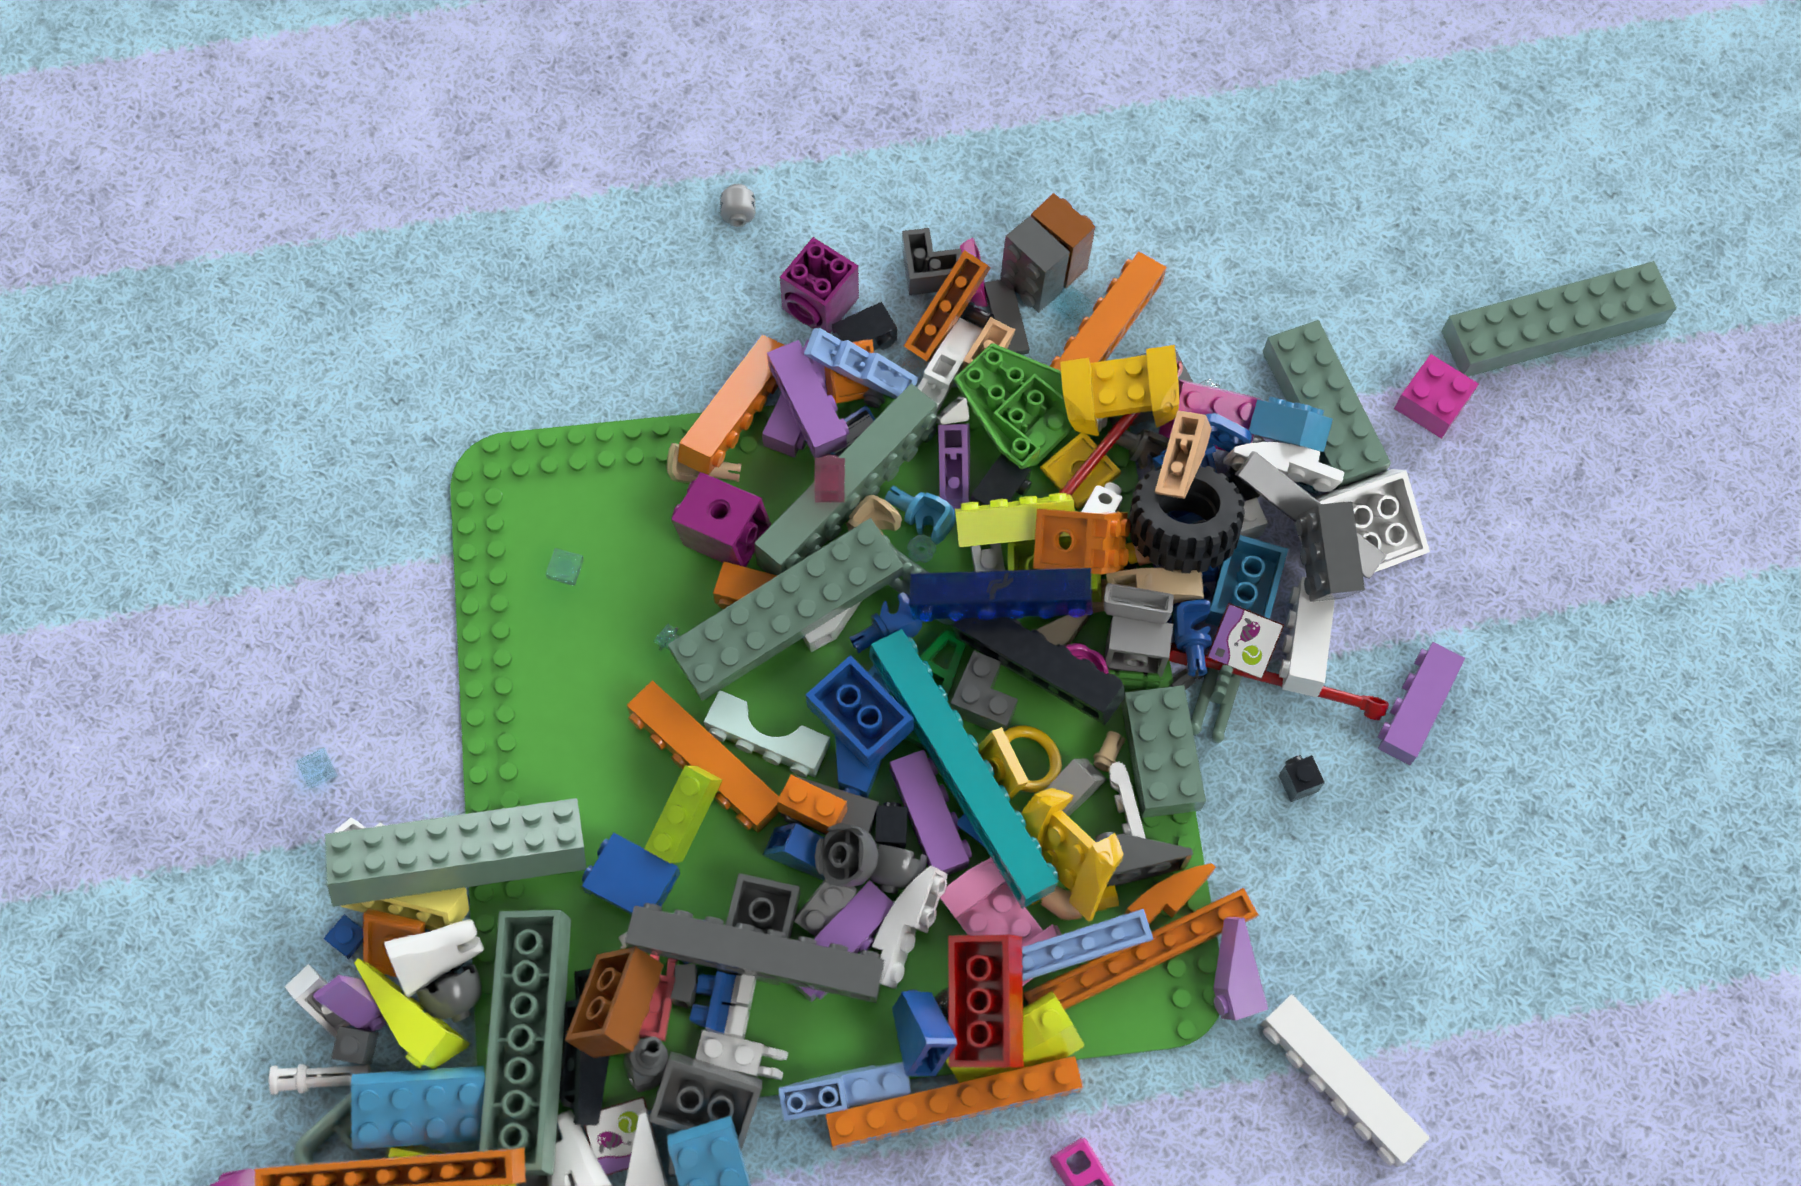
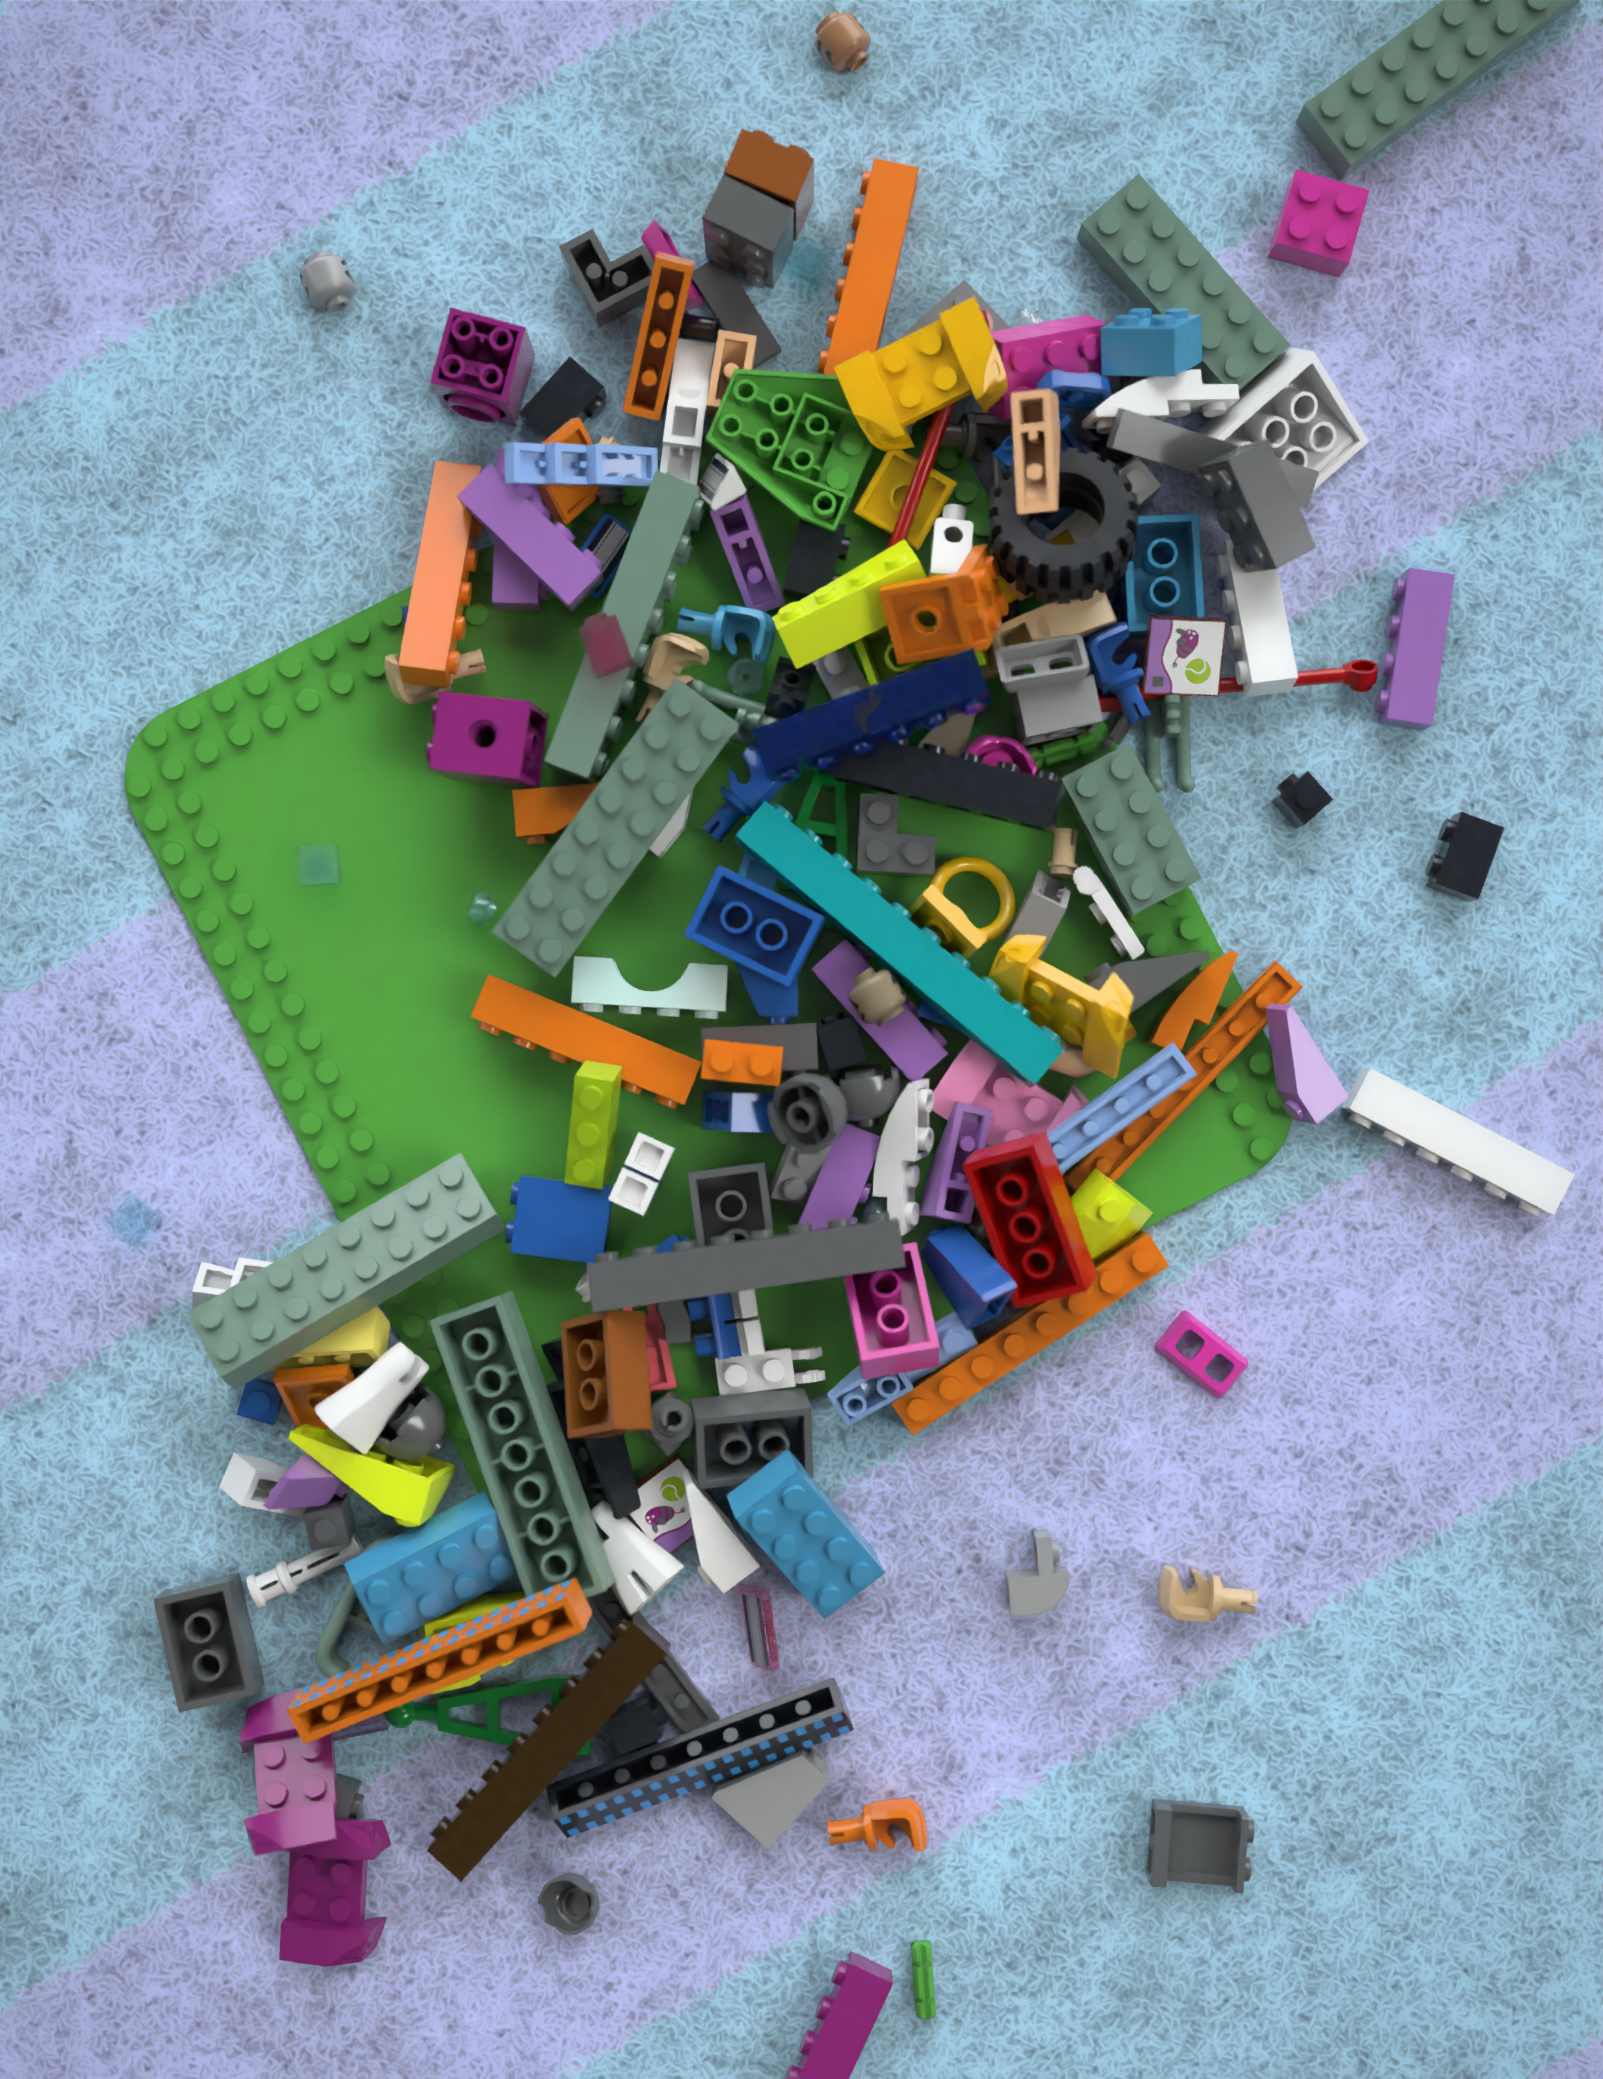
camera: 20 degrees left, 20 degrees up
(219, 1104) = (209, 1642): none -> dark grey brick
(701, 869) = (642, 1174): none -> white hips
(851, 1041) = (892, 1318): none -> dark pink brick
(931, 796) = (877, 996): none -> dark tan head
(931, 965) = (946, 1189): none -> medium lavender slope
(951, 559) = (789, 688): none -> black brick
(1143, 178) = (842, 41): none -> medium nougat head
(1413, 865) = (1463, 856): none -> black brick

